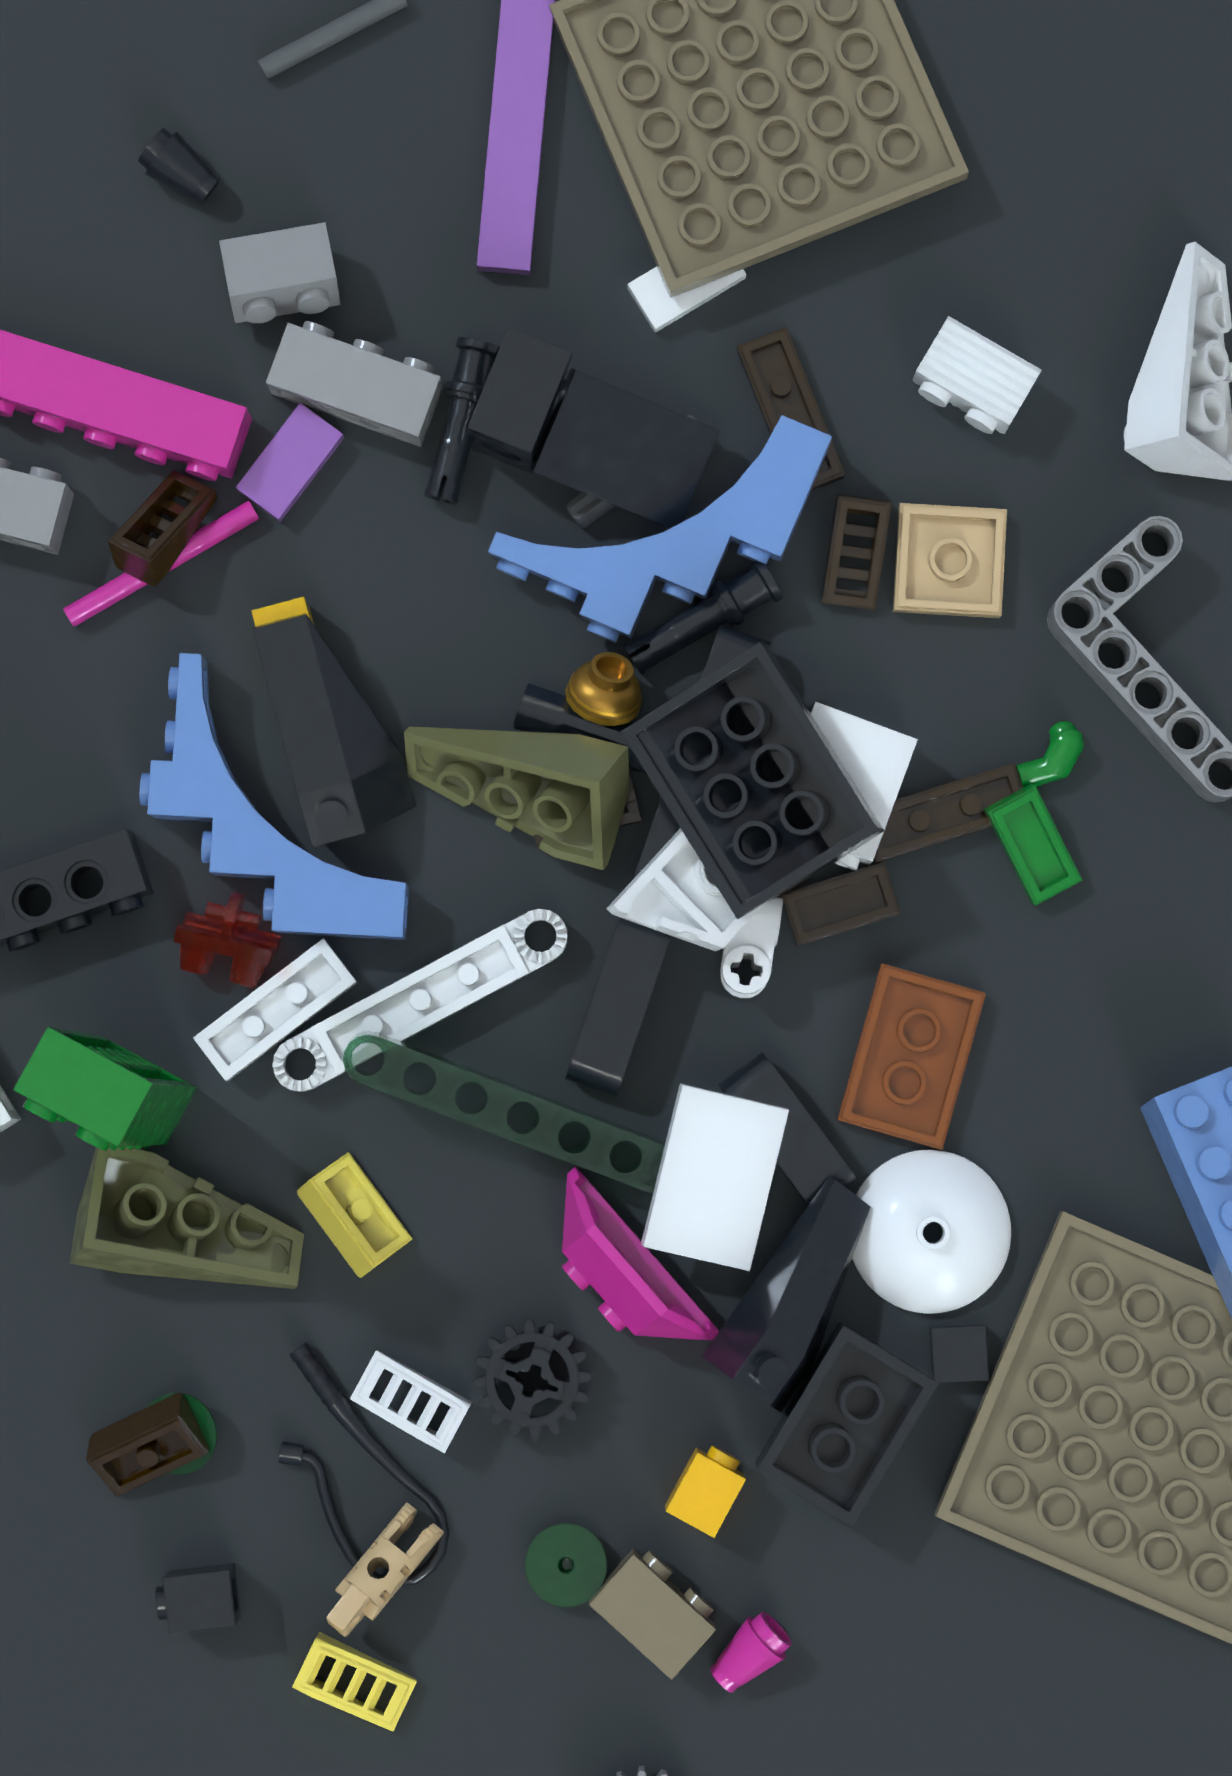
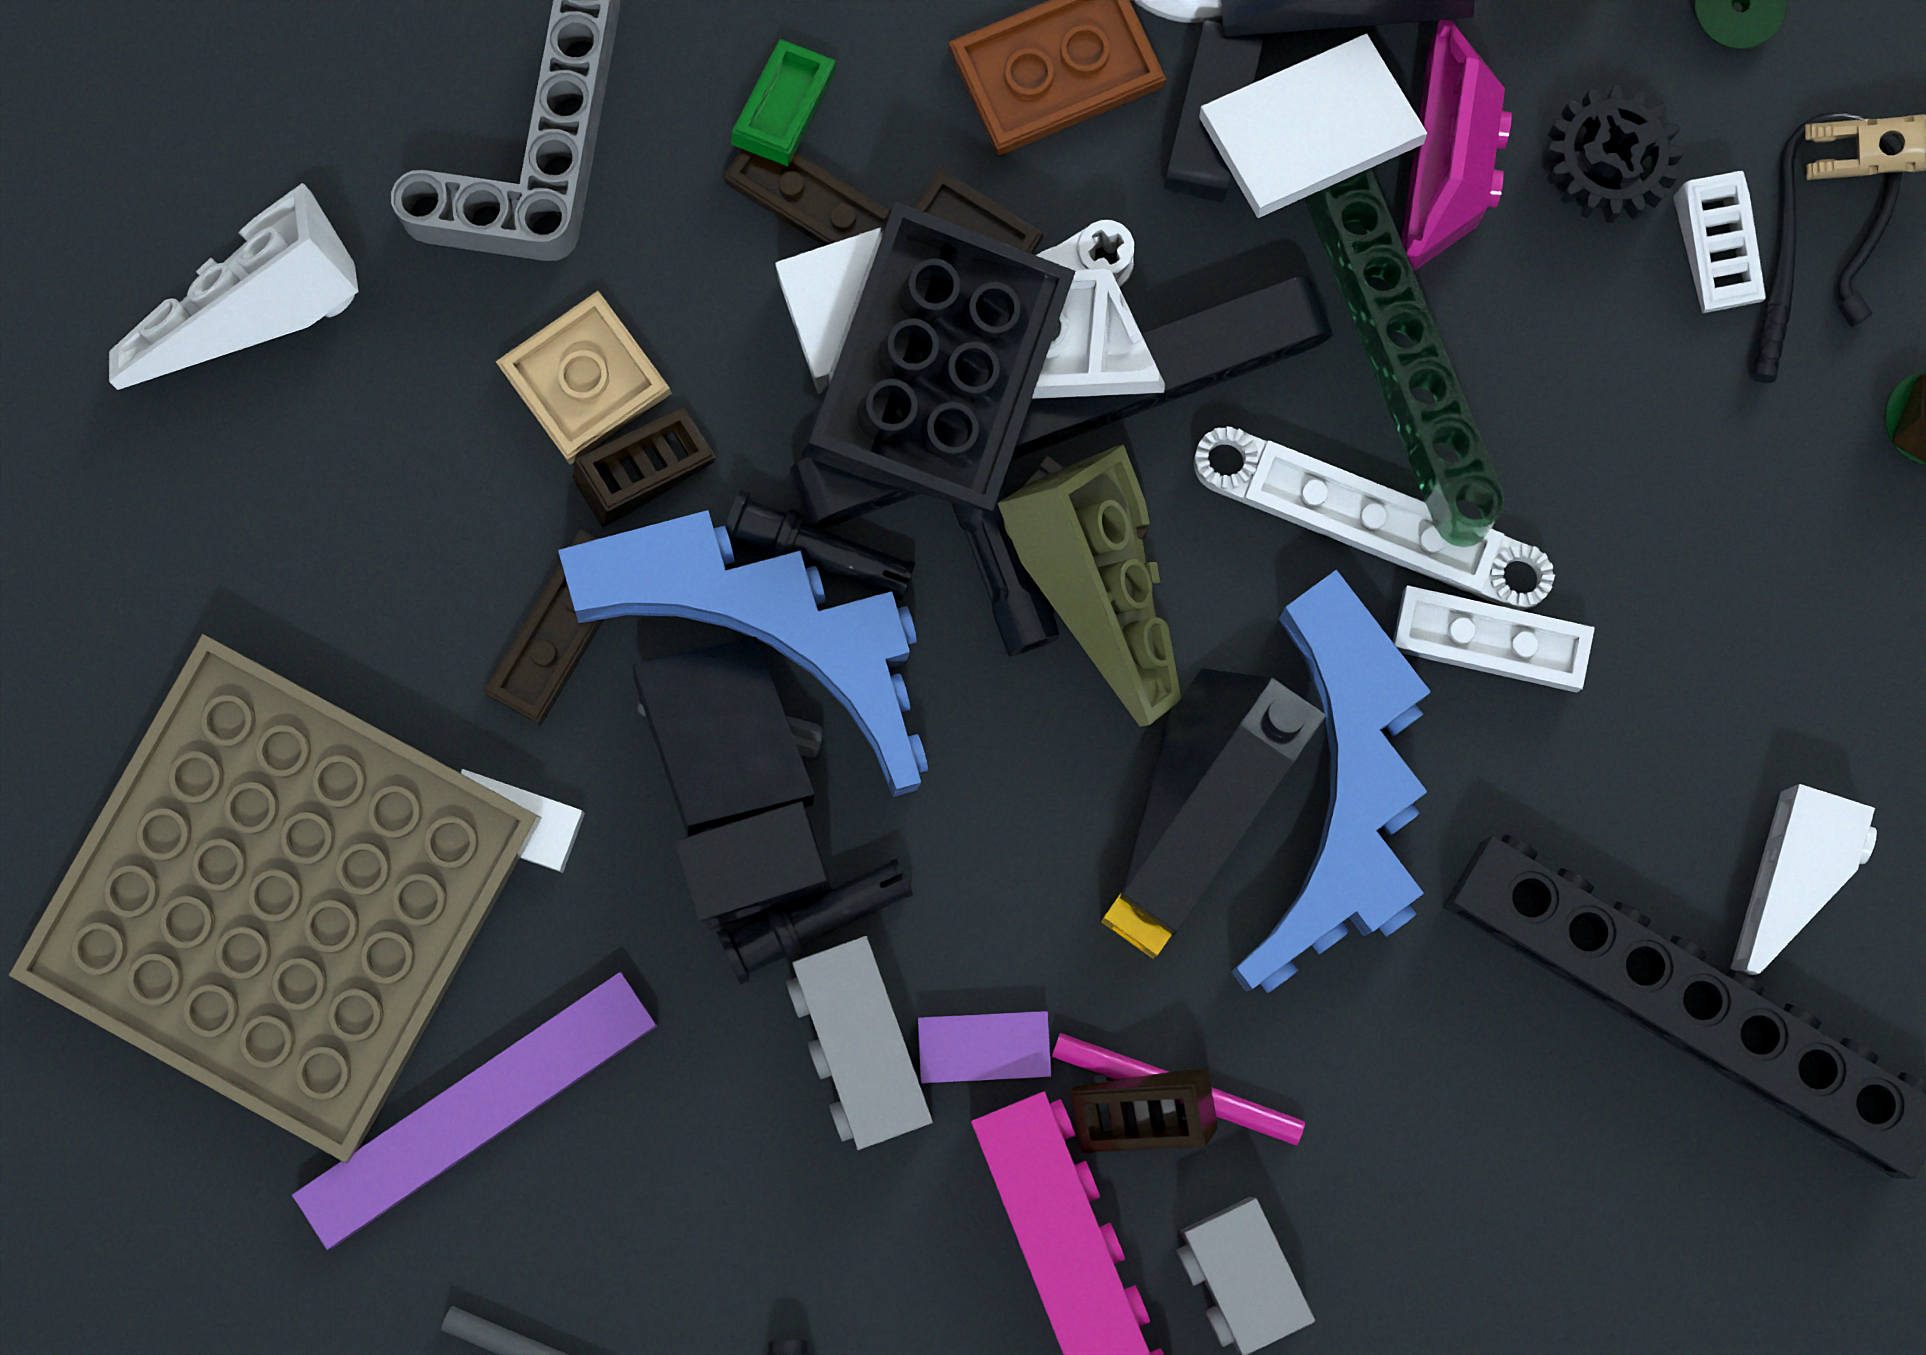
camera: 130 degrees left, 5 degrees down
(104, 1090) = (1728, 675): green brick -> none
(163, 1223) = (1760, 577): olive wedge -> none
(229, 933) = (1466, 734): clear red hips -> none
(280, 273) = (815, 1200): light grey brick -> none
(353, 1215) = (1606, 424): light yellow slope -> none
(605, 690) = (960, 577): pearl gold piece -> none
(975, 377) = (394, 481): white brick -> none
(1059, 759) = (686, 141): green arm -> none

